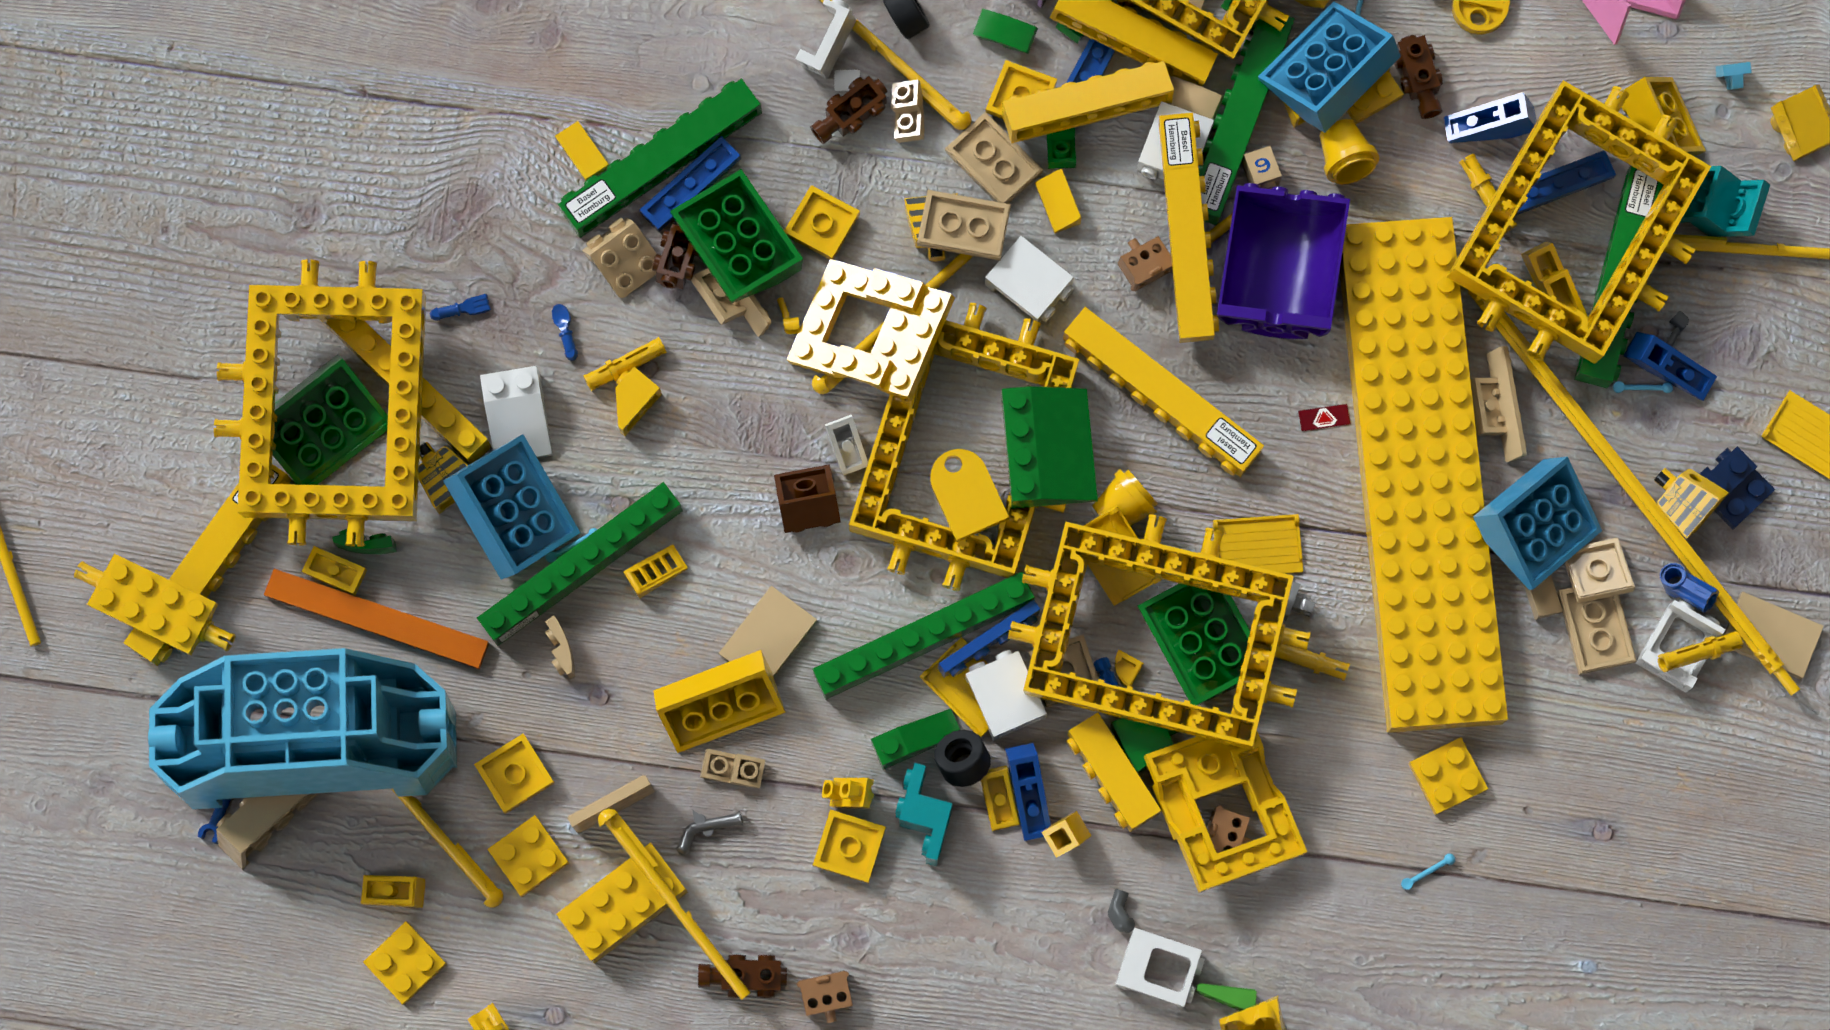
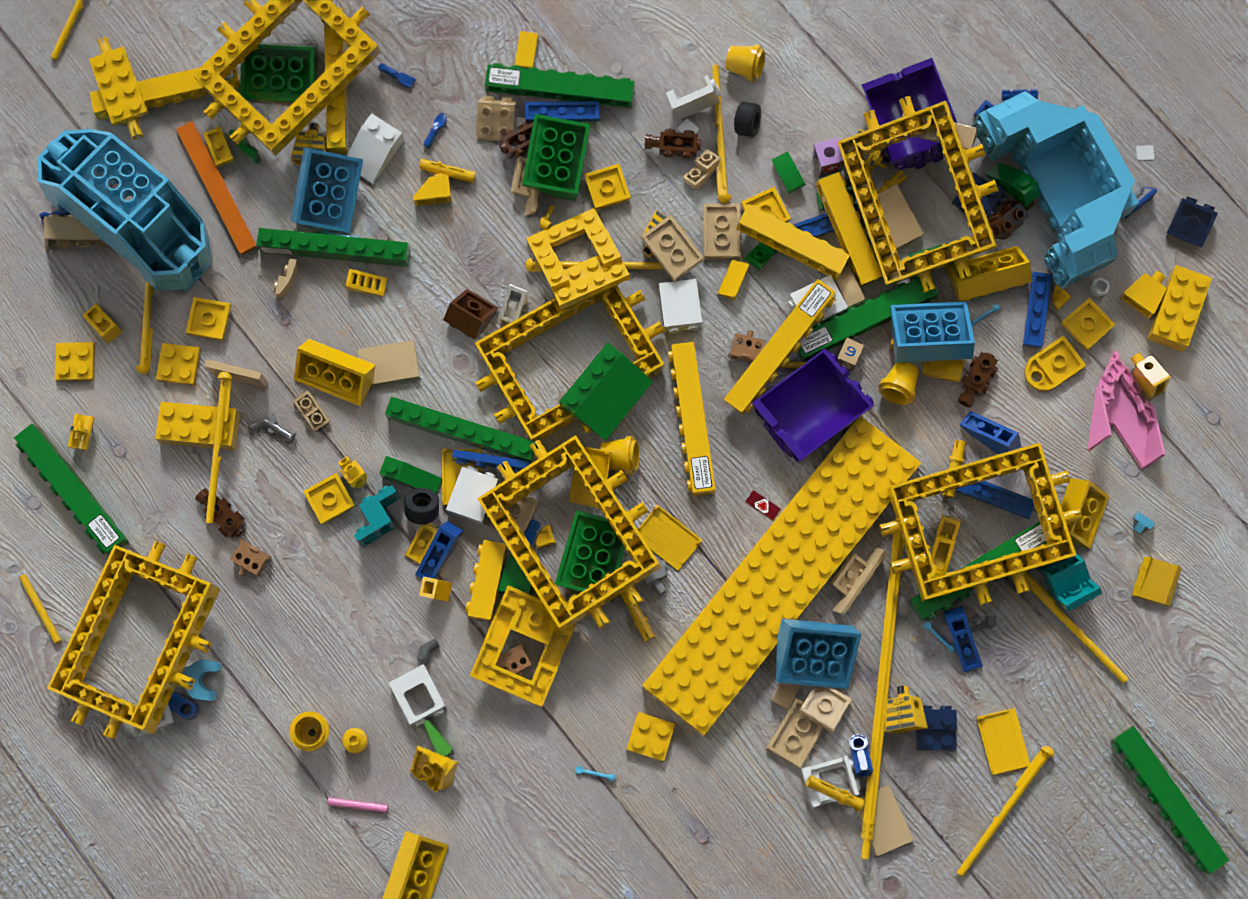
camera: 45 degrees right, 0 degrees up
(968, 495) = (544, 380): yellow tile -> none

